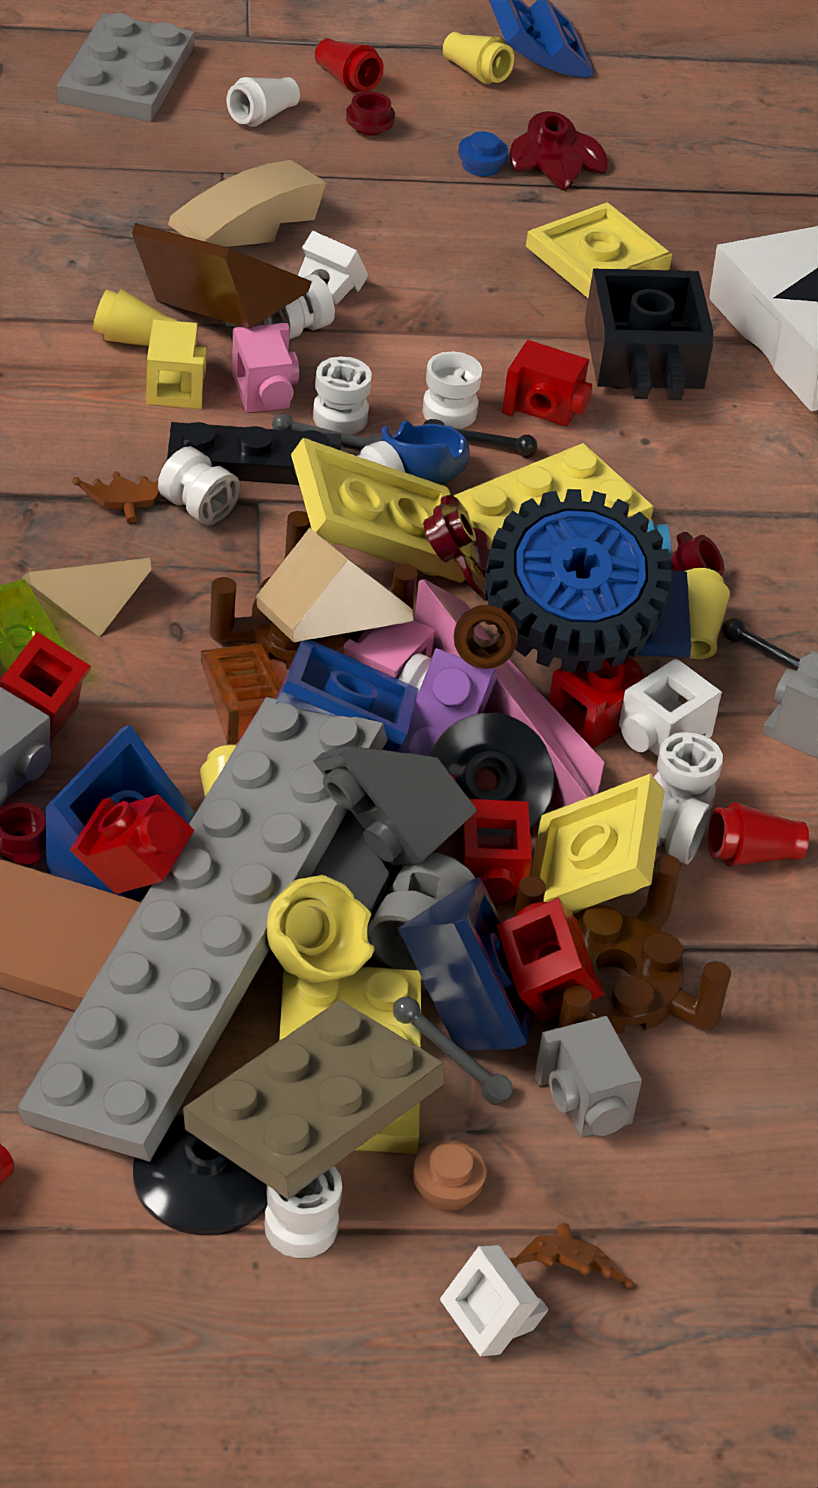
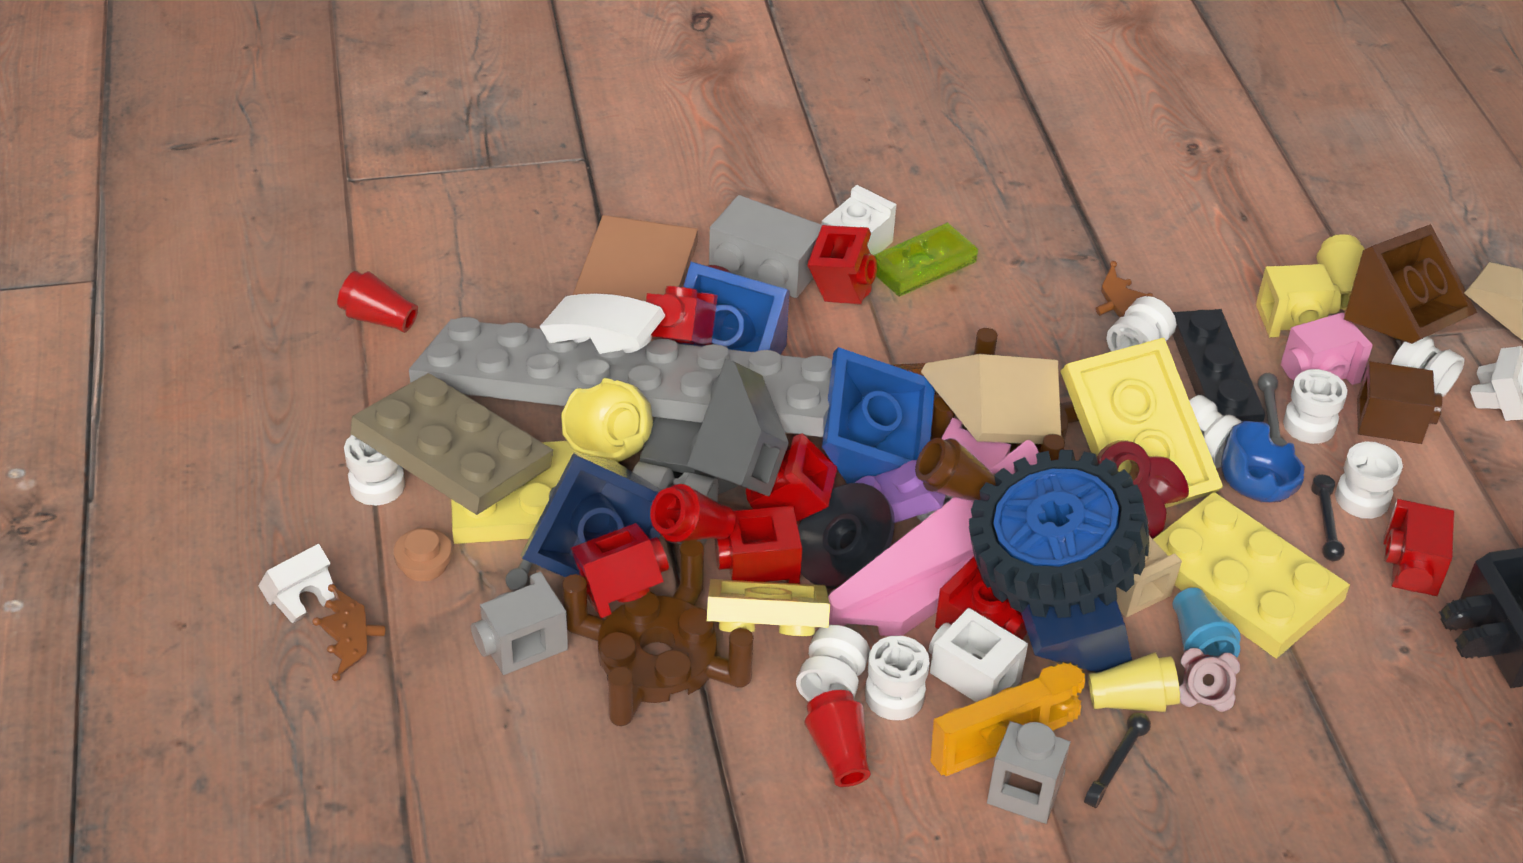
camera: 85 degrees right, 0 degrees up
(92, 592) = (992, 291): tan slope -> none
(154, 899) = (607, 319): none -> white slope
(345, 331) = (1397, 402): none -> reddish brown brick
(510, 867) = (688, 515): none -> red cone
(744, 707) = (976, 731): none -> light orange hinge

